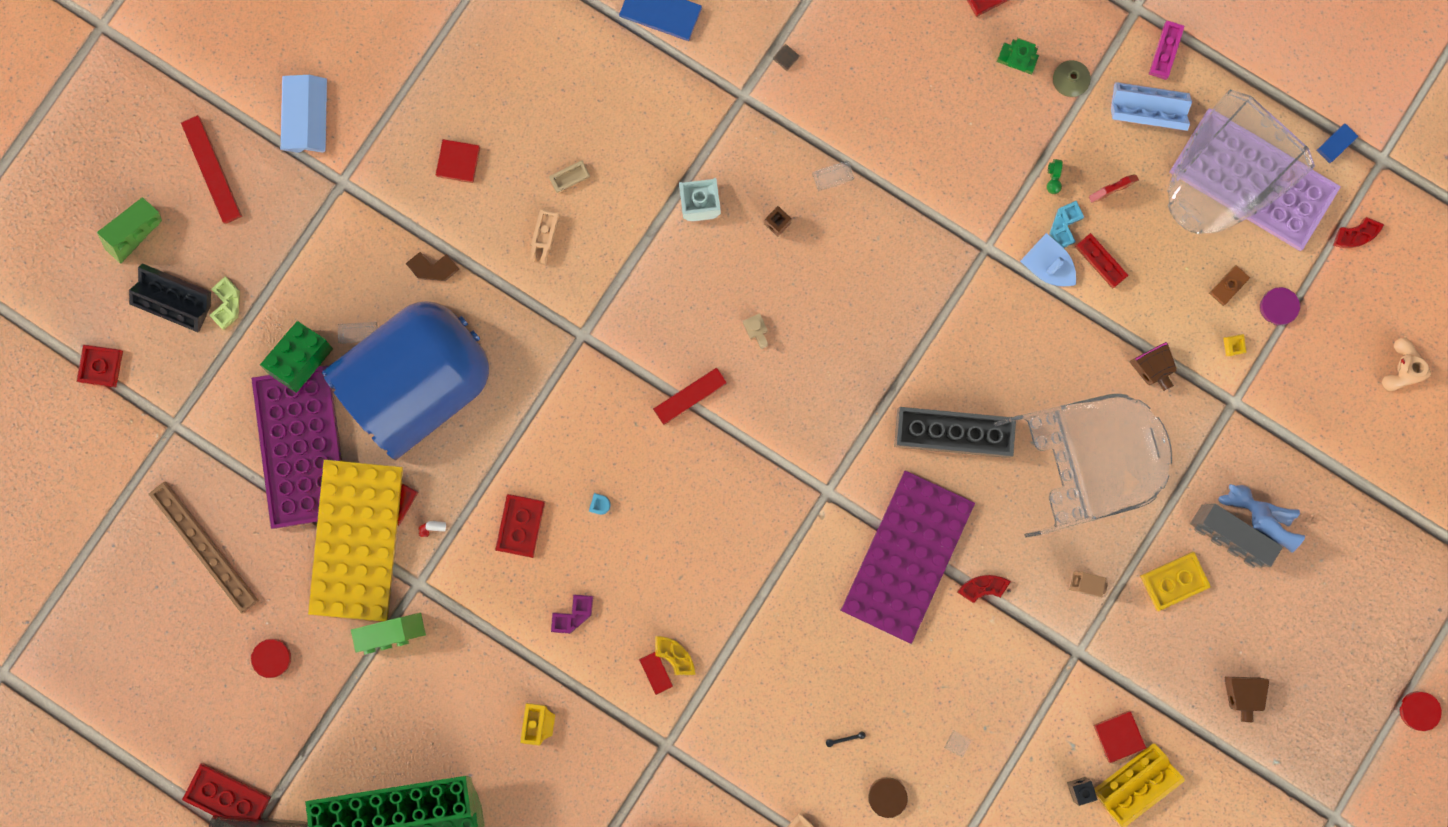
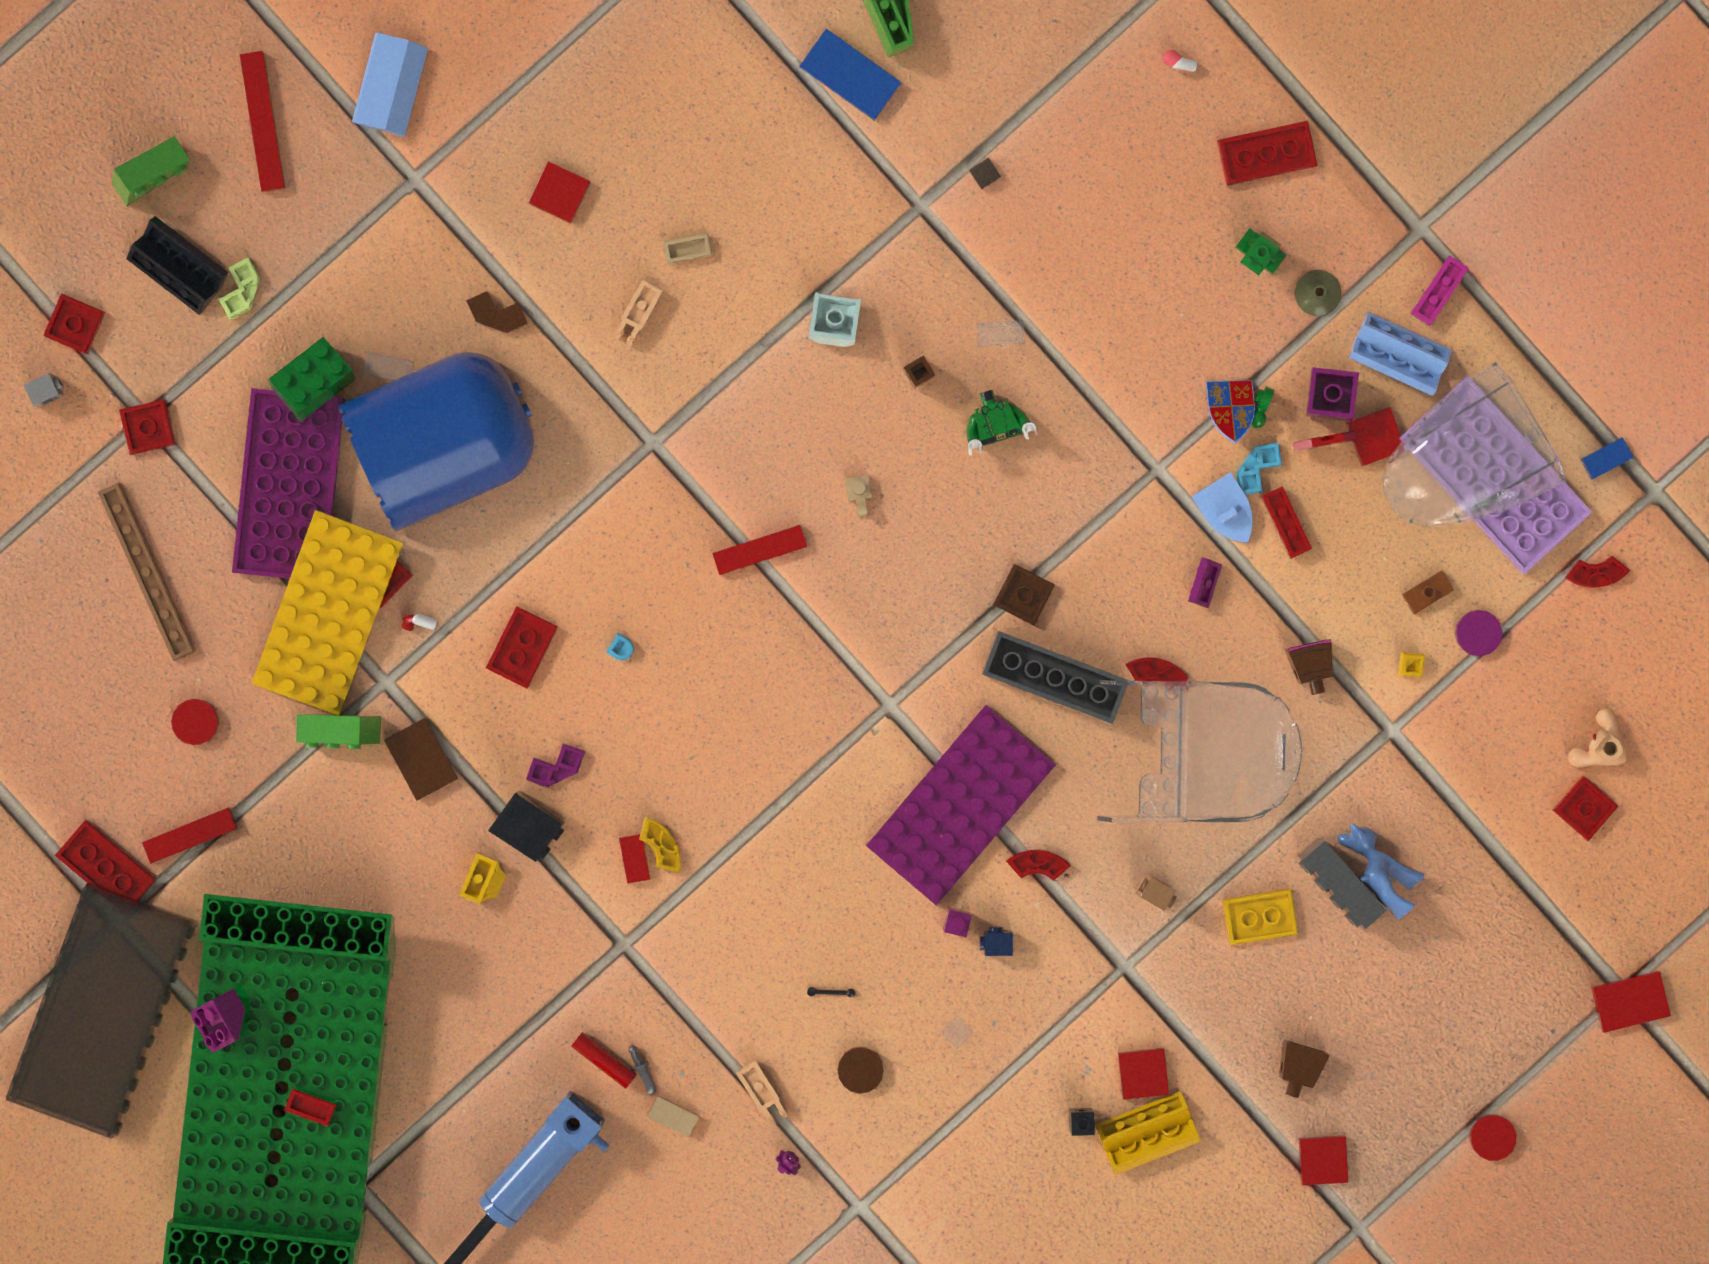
camera: 10 degrees right, 5 degrees up
(86, 424) = (44, 390): none -> light grey brick
(177, 431) = (147, 427): none -> red tile
(288, 753) = (189, 835): none -> red tile
(461, 638) = (421, 759): none -> reddish brown tile
(561, 670) = (527, 826): none -> black slope
(850, 244) = (996, 422): none -> green torso
(910, 374) = (1024, 594): none -> reddish brown tile
(933, 653) = (957, 922): none -> magenta brick
(969, 660) = (997, 942): none -> dark blue brick
(1031, 182) = (1231, 407): none -> shield
(1031, 404) = (1155, 670): none -> red tile
(1051, 325) = (1205, 582): none -> magenta plate
(1108, 150) = (1332, 394): none -> magenta brick
(1152, 173) = (1376, 435): none -> red tile
(1288, 768) = (1323, 1160): none -> red tile
(1408, 422) = (1585, 808): none -> red tile

